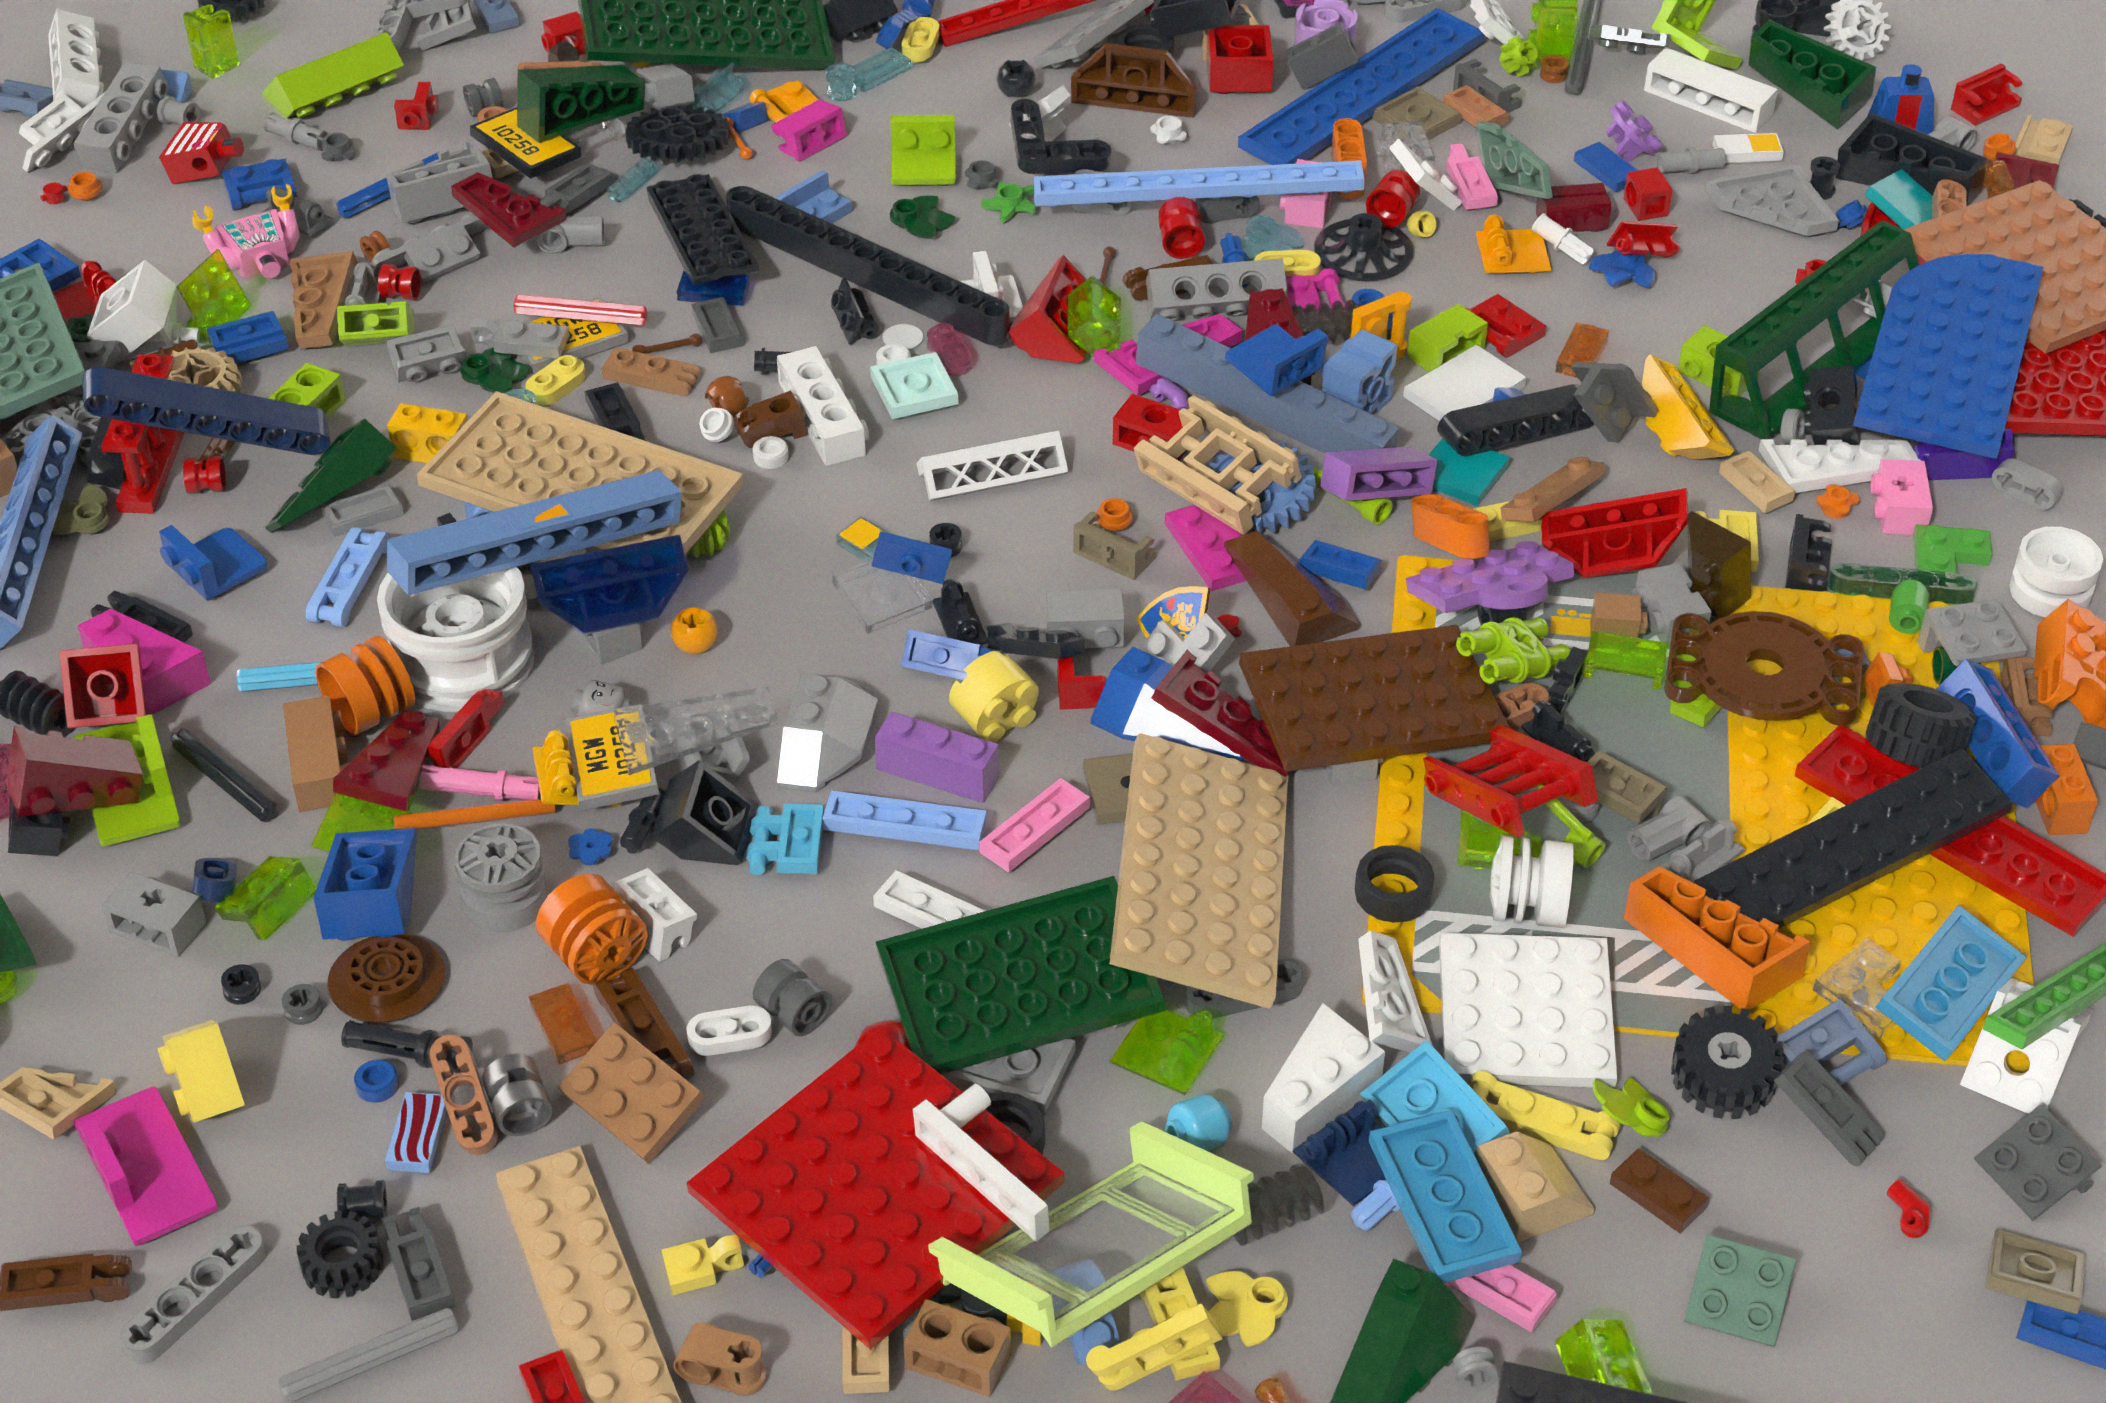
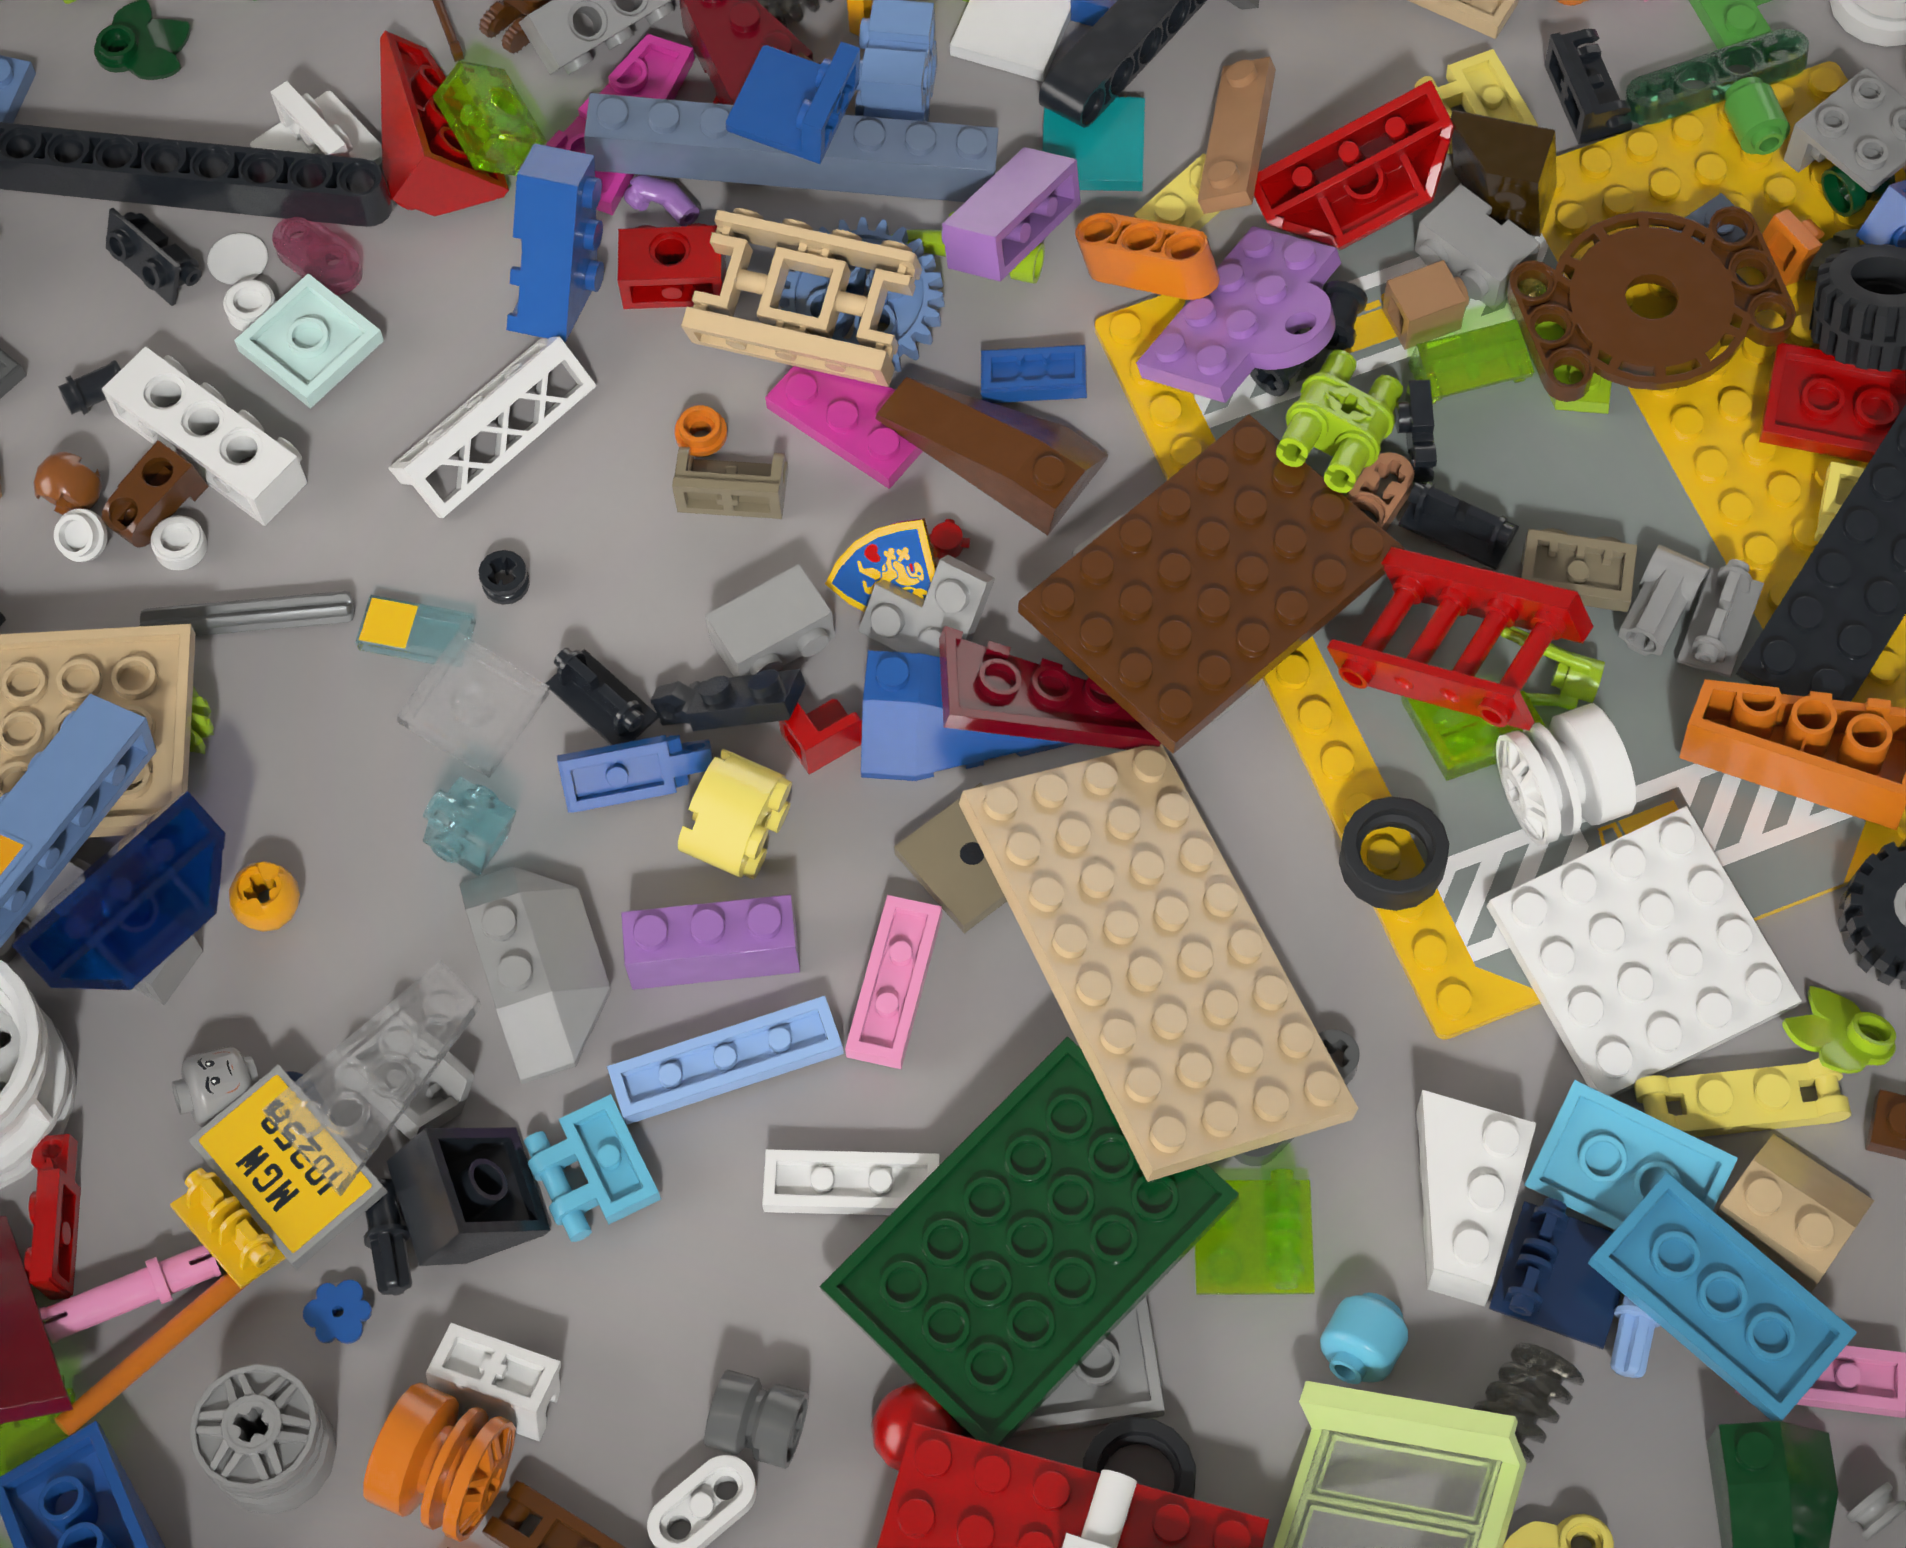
camera: 25 degrees left, 20 degrees up
(794, 503) = (256, 613): none -> dark grey axle
(835, 642) = (467, 825): none -> clear light blue brick
(911, 557) = (492, 644): blue plate -> none
(1088, 379) = (558, 241): none -> blue wedge
(1389, 995) = (1492, 1034): white wing -> none
(1560, 601) = (1347, 302): none -> black bush

